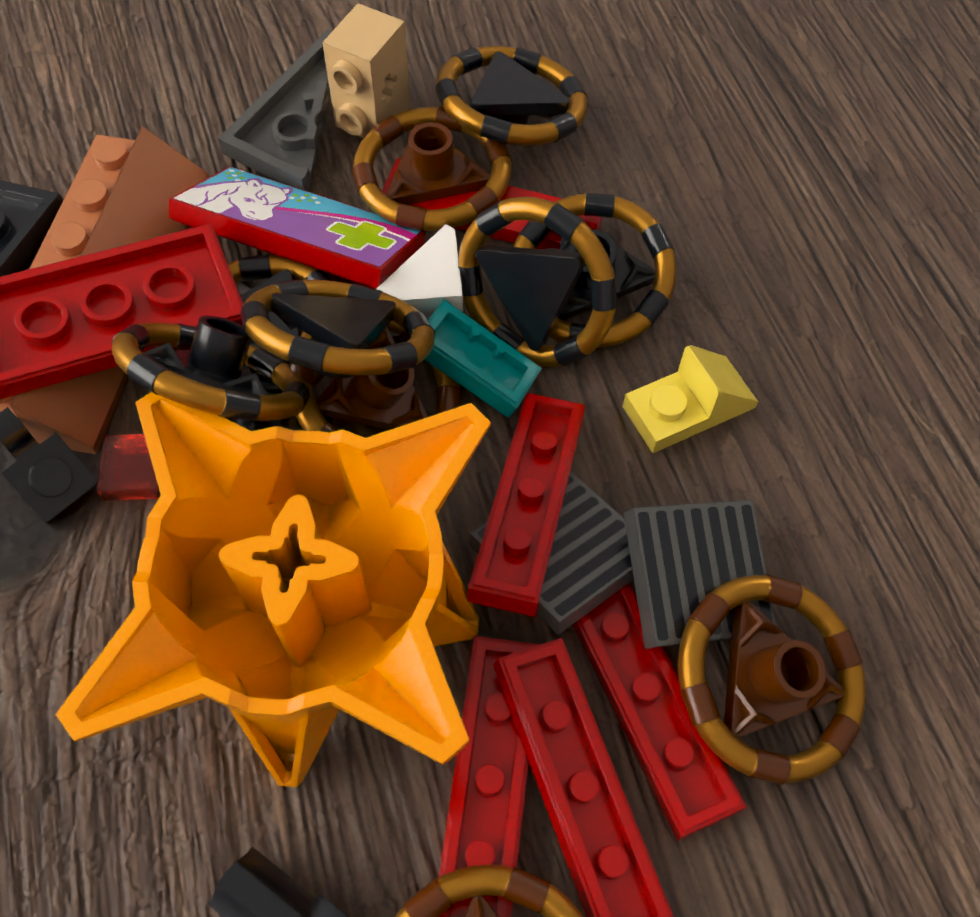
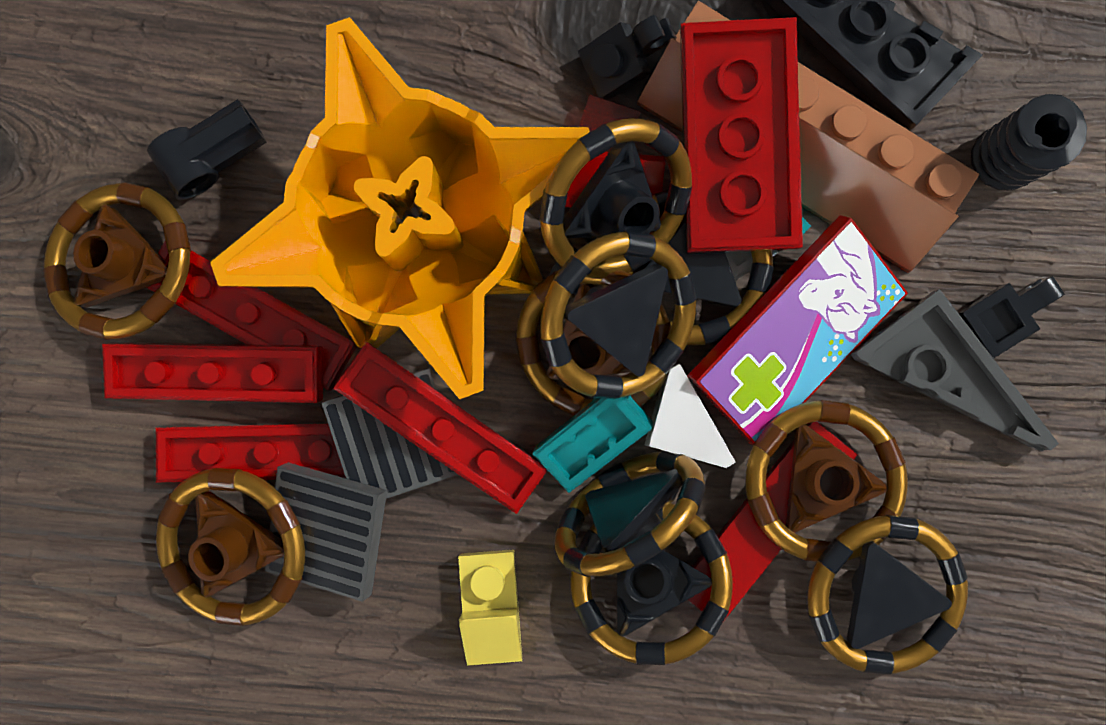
camera: 115 degrees right, 25 degrees up
(55, 100) = (1030, 143): none -> black piece
(223, 93) = (1006, 317): none -> black plate
(367, 69) = (959, 456): tan brick -> none

